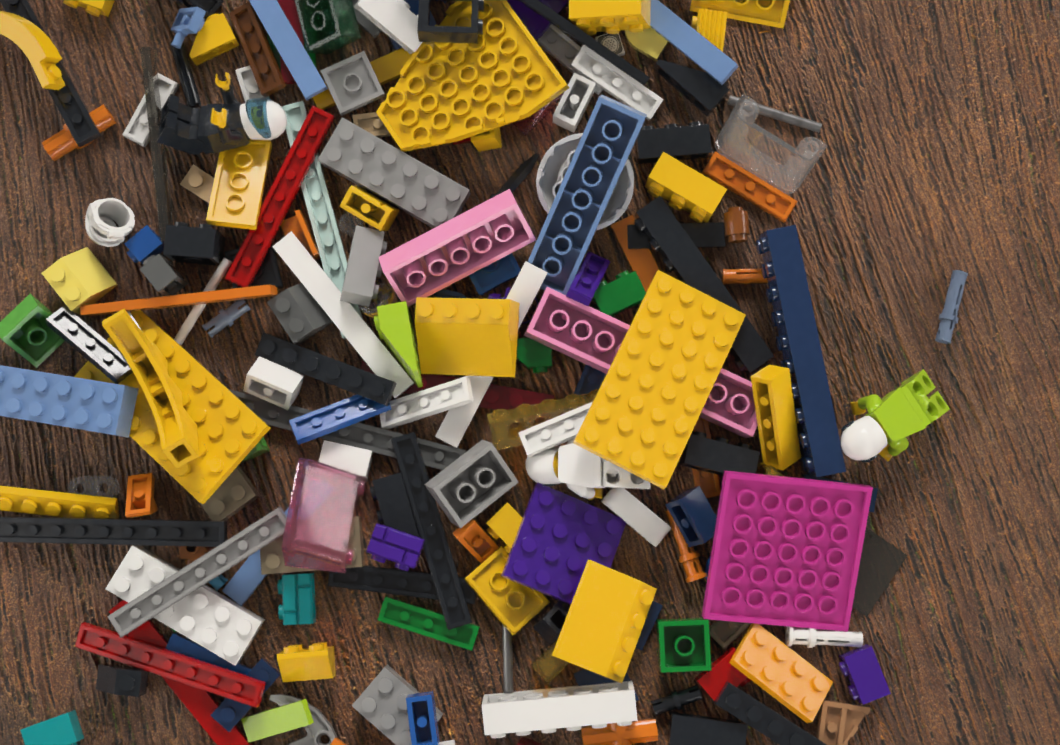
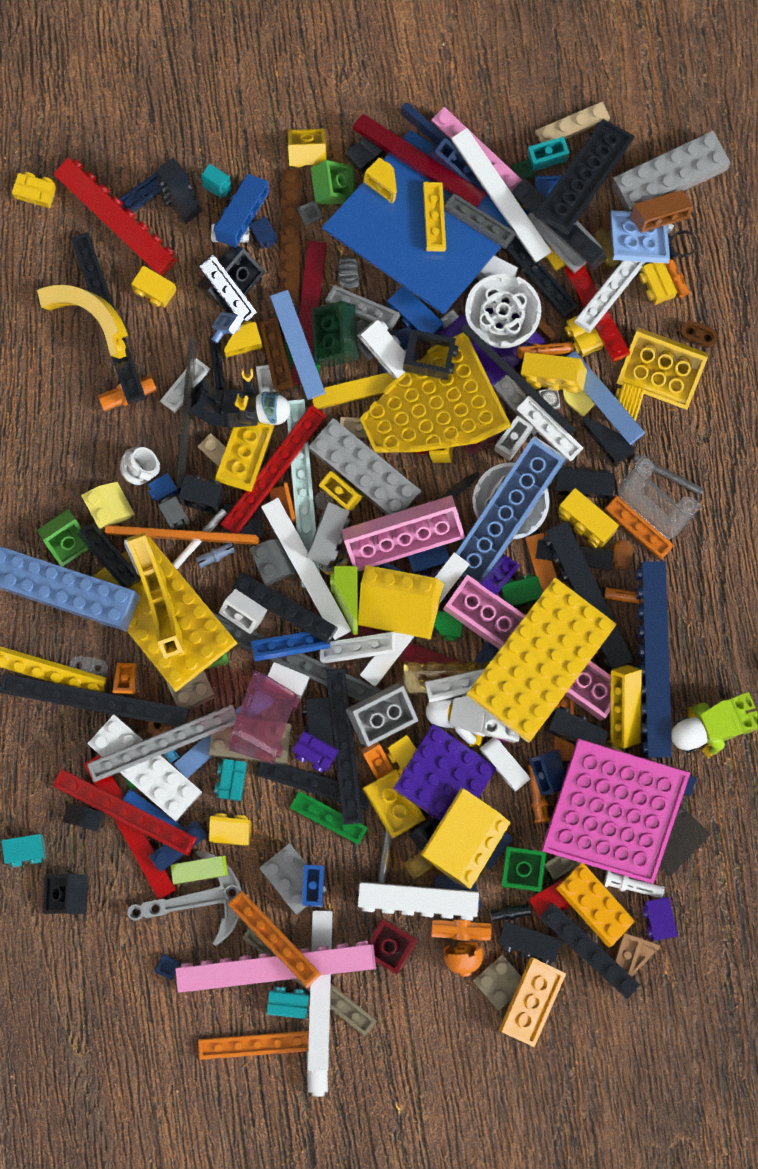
camera: 10 degrees right, 5 degrees down
(352, 83) = (345, 393): light grey plate -> none

